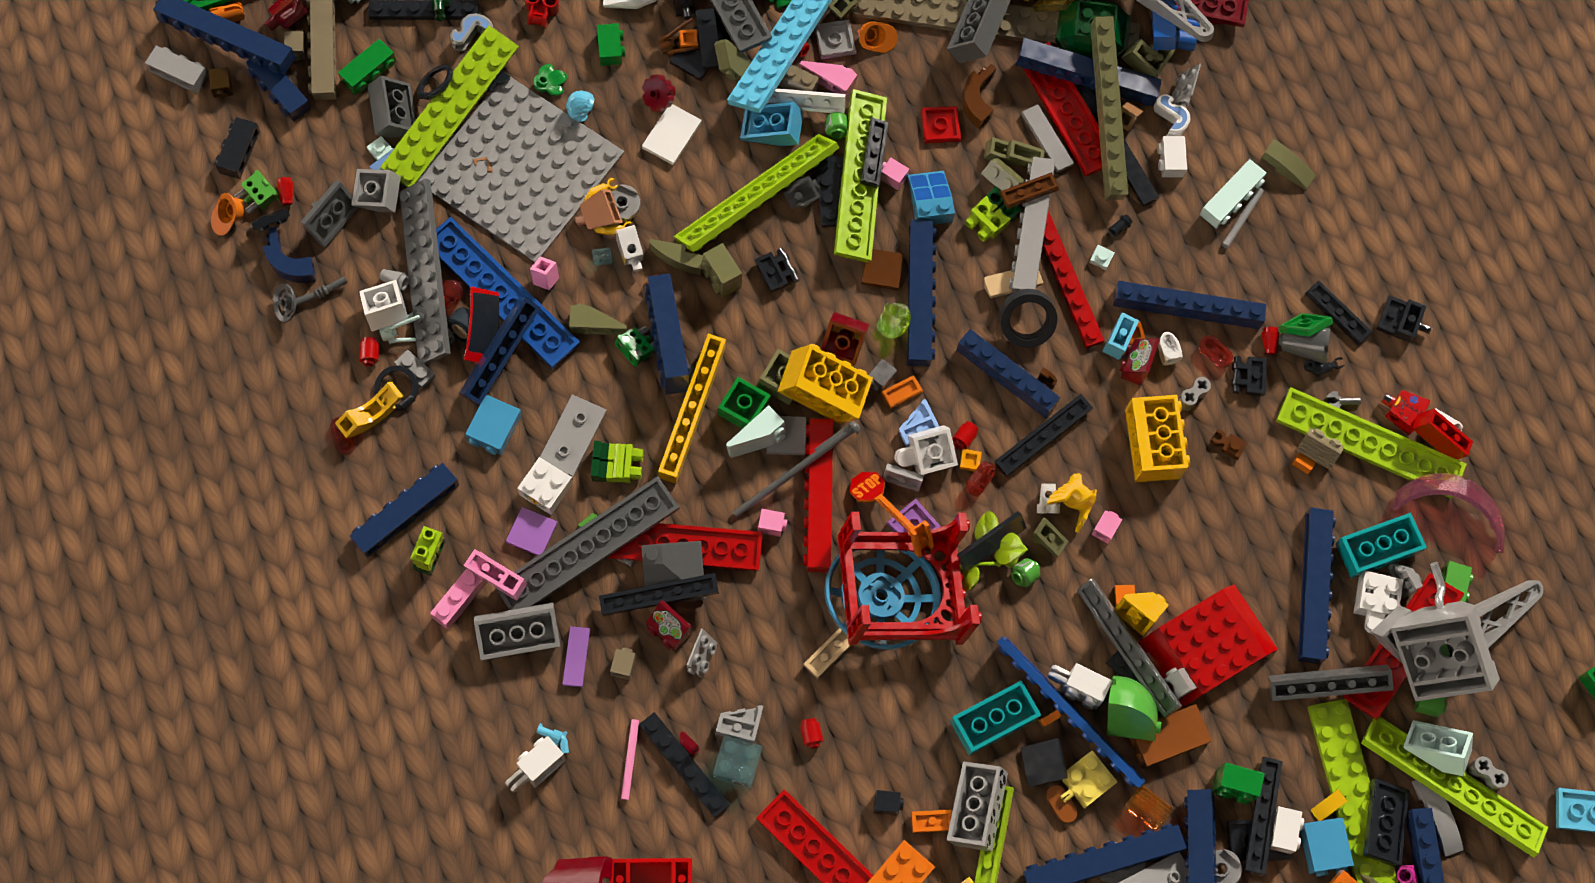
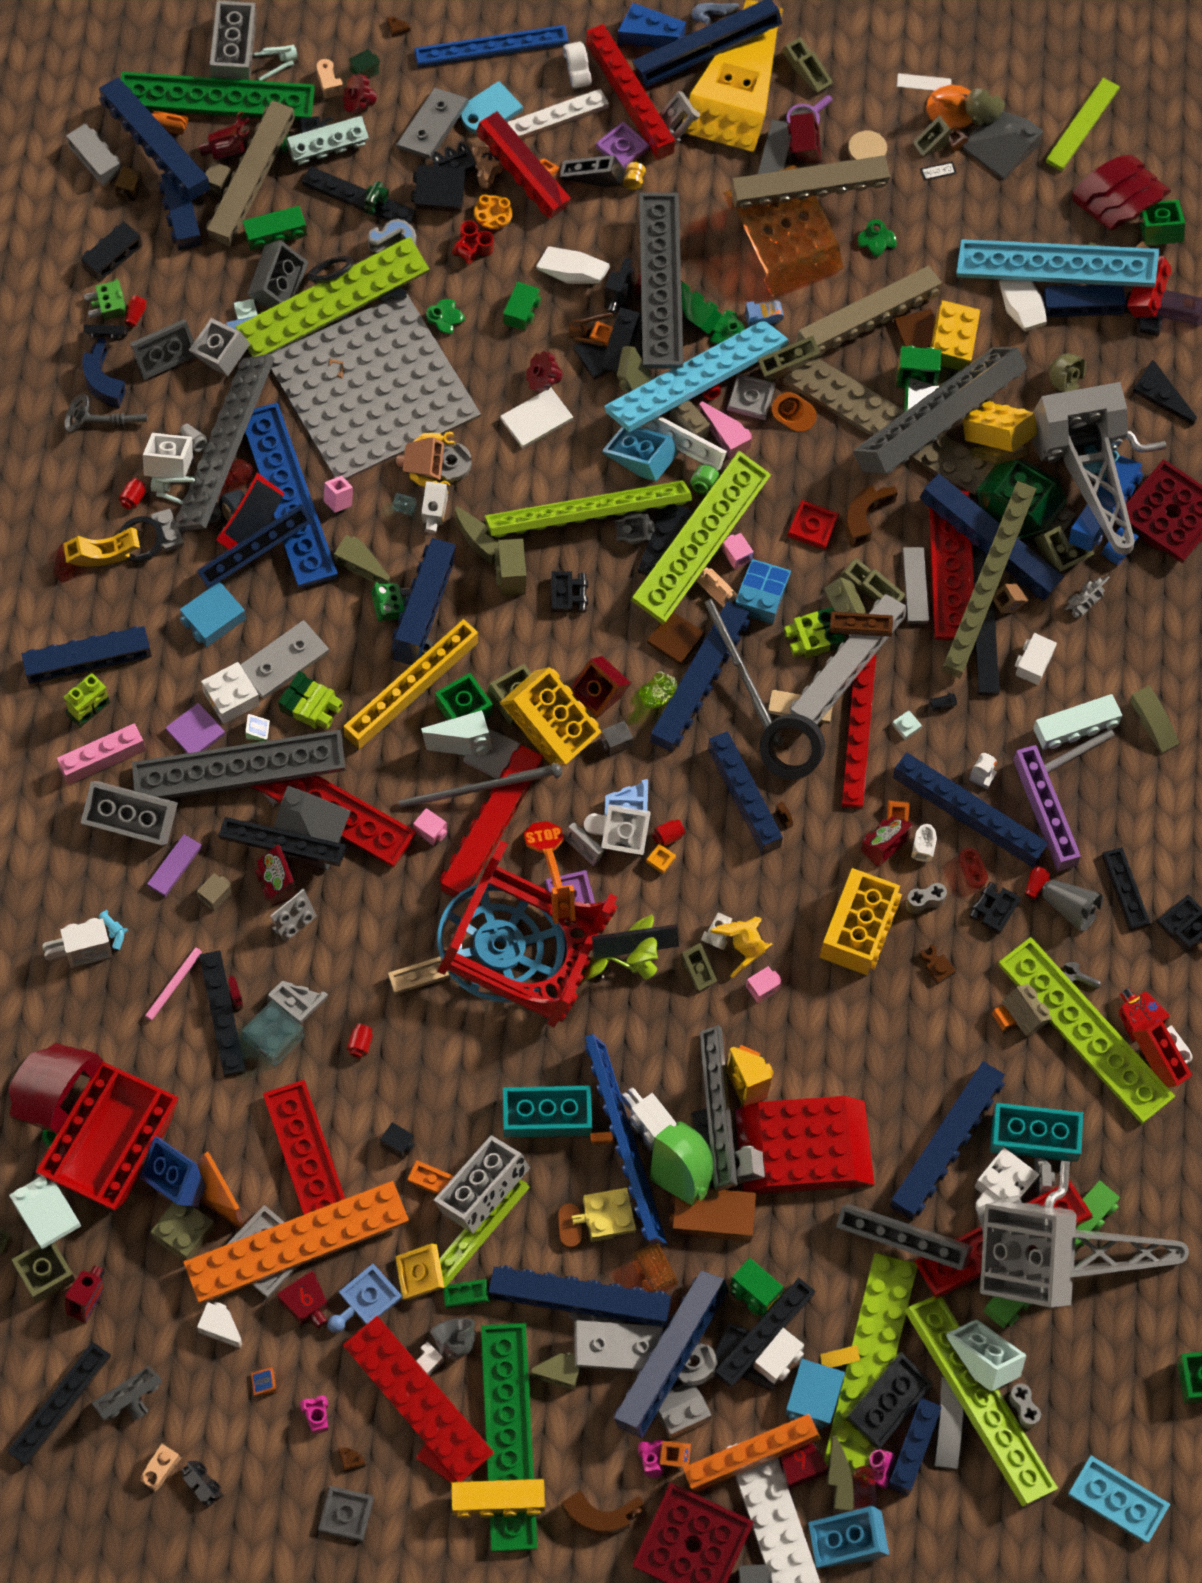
camera: 30 degrees right, 5 degrees down
(226, 212) = (68, 307): orange piece -> none
(496, 574) = (136, 750): bright pink slope -> none
(579, 105) = (458, 351): medium azure hair -> none
(582, 505) = (257, 728): none -> slope
(874, 153) = (726, 521): black tile -> none
(894, 212) = (716, 587): none -> light nougat hinge
(901, 392) = (629, 763): orange tile -> none
(952, 271) = (737, 661): none -> dark grey bar
(980, 478) = (661, 879): clear red plate -> none
(1025, 572) = (656, 990): bright green head -> none
(1043, 435) = (749, 868): black plate -> none
(1044, 762) = (572, 1177): black tile -> none
(1120, 336) = (879, 807): medium azure slope -> none
(1173, 113) = (1061, 617): white animal -> none
(1183, 267) = (983, 772): none -> white leg
(1247, 275) = (1046, 808): none -> medium lavender brick
(1305, 324) = (1078, 881): green tile -> none
(1320, 369) = (1074, 935): black arm -> none
(1458, 487) = (1156, 1120): clear pink windscreen -> none

